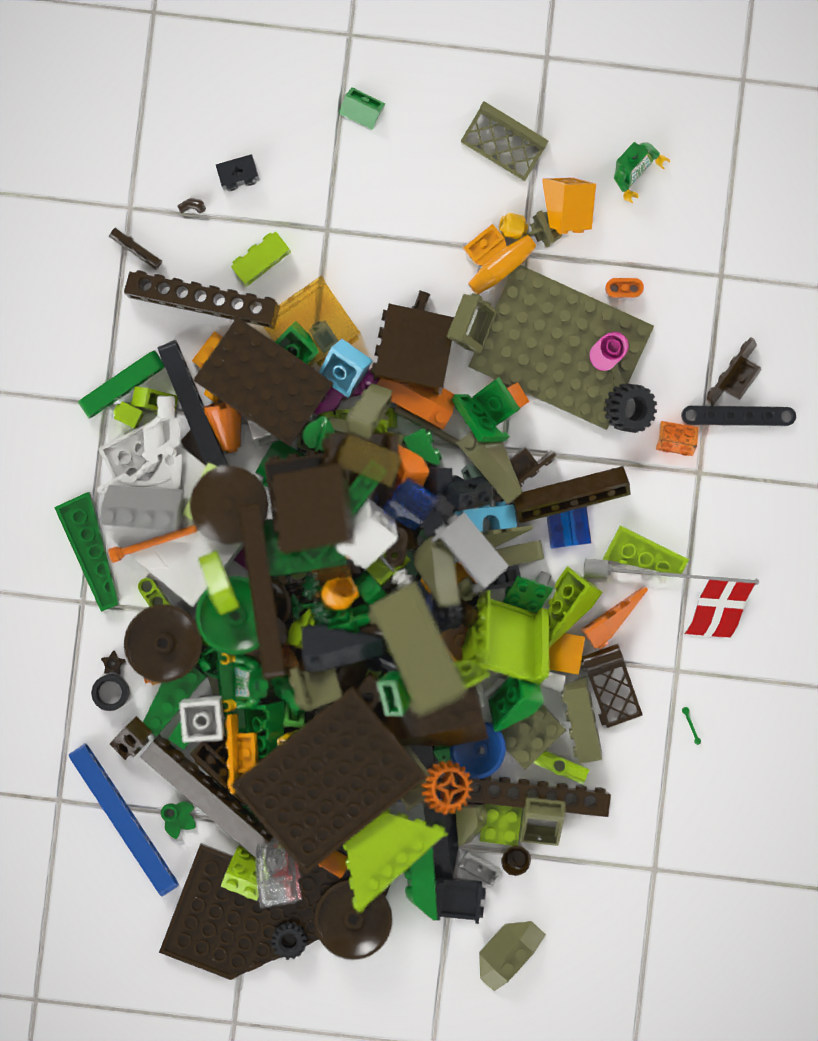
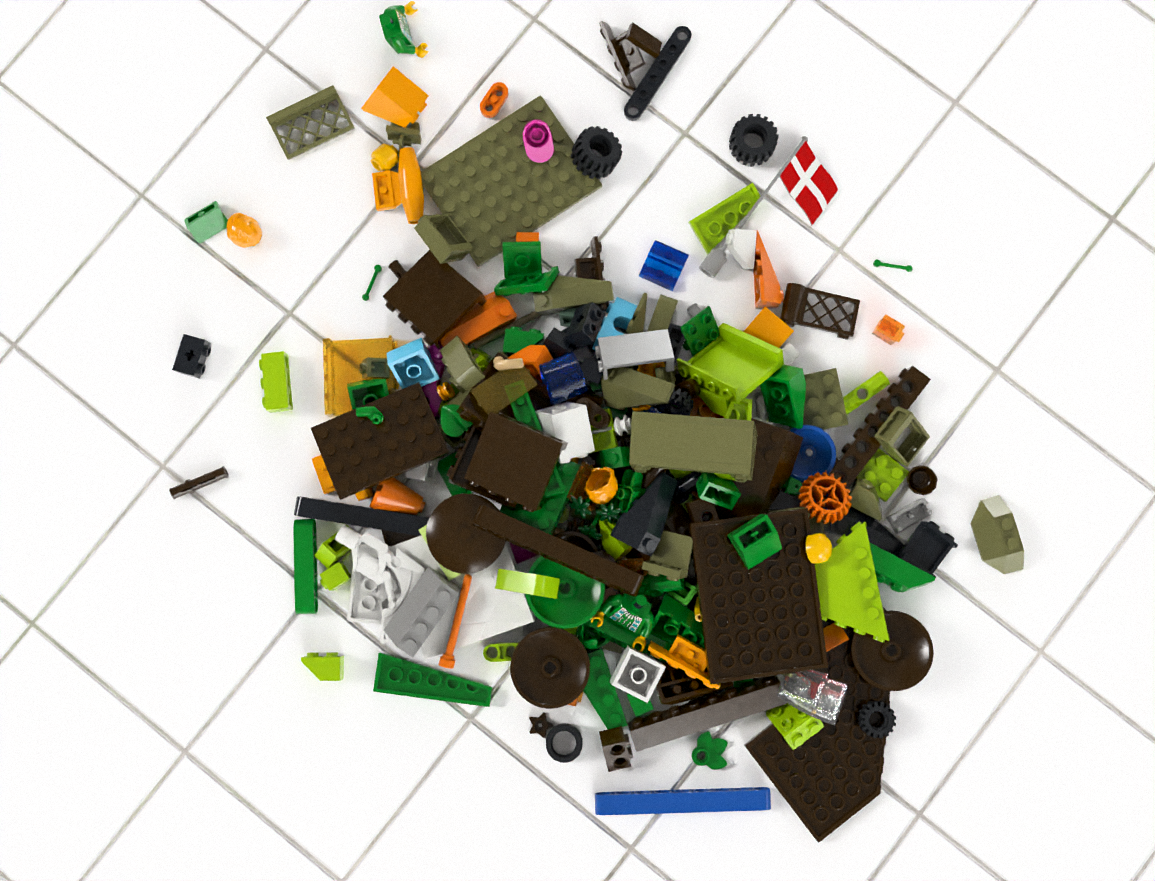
camera: 55 degrees left, 5 degrees down
(48, 453) = (325, 667): none -> lime slope
(135, 290) = (287, 449): dark brown brick -> none
(192, 203) = (192, 411): dark brown arm -> none
(281, 360) = (371, 412): none -> green arm
(341, 409) = (445, 391): none -> light orange bush
(371, 750) = (755, 540): none -> green slope
(373, 145) = (243, 230): none -> light orange hair
(393, 454) = (501, 364): none -> tan arm
(399, 806) = (818, 548): none -> yellow hair
(412, 281) = (378, 269): none -> green hinge
(570, 602) = (728, 300): lime wedge -> none
(572, 494) = (638, 244): dark brown brick -> none
(582, 721) = (835, 350): olive wedge -> none
(625, 585) = (742, 246): none -> white slope
(629, 755) = (889, 330): none -> clear orange brick
(677, 438) = (645, 132): clear orange bracket -> none
(744, 537) = (758, 126): none -> black tyre
(759, 386) = (644, 40): none -> dark brown tile

